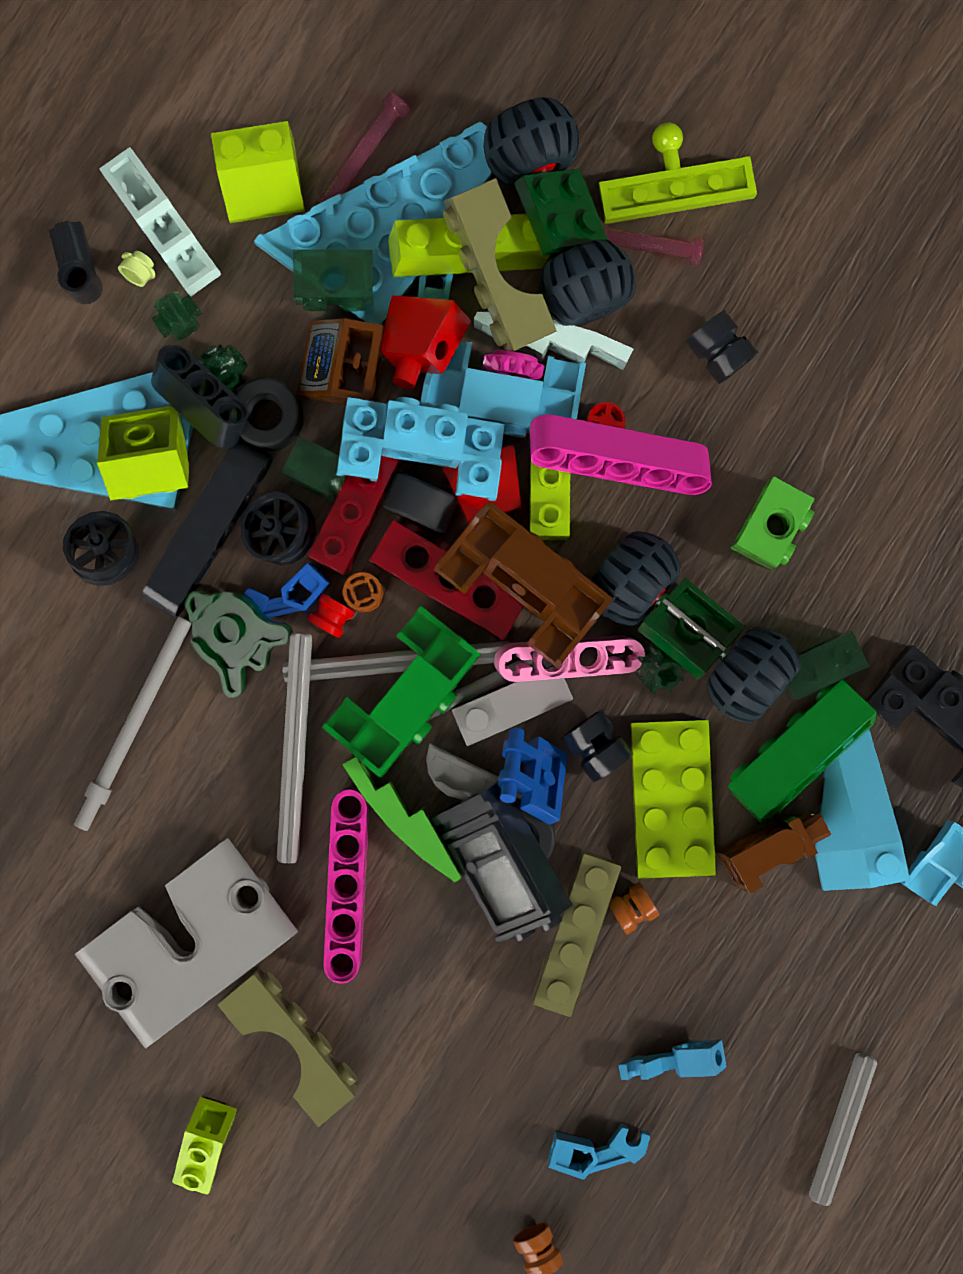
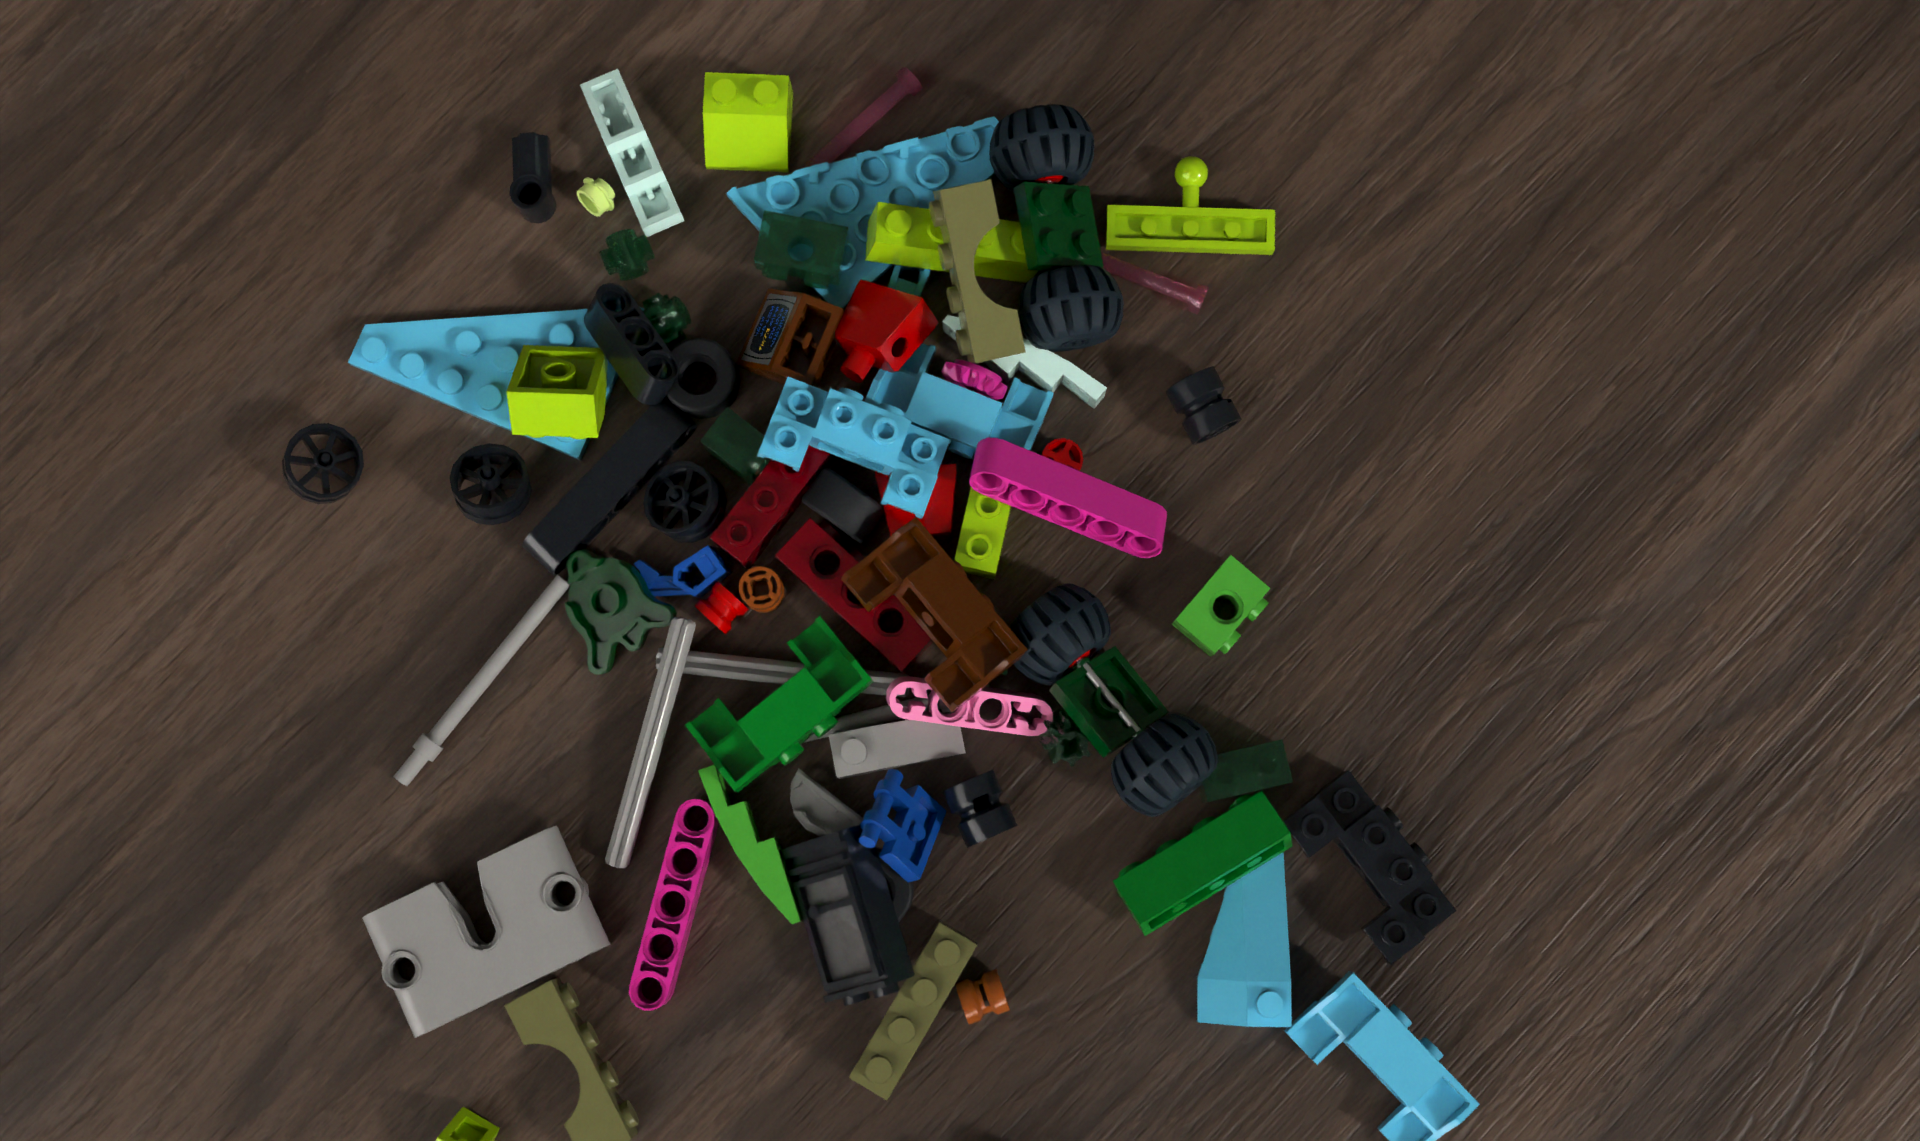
camera: 15 degrees right, 5 degrees down
(672, 799) = (1051, 885): lime plate -> none
(772, 846) = (1149, 958): reddish brown hips -> none

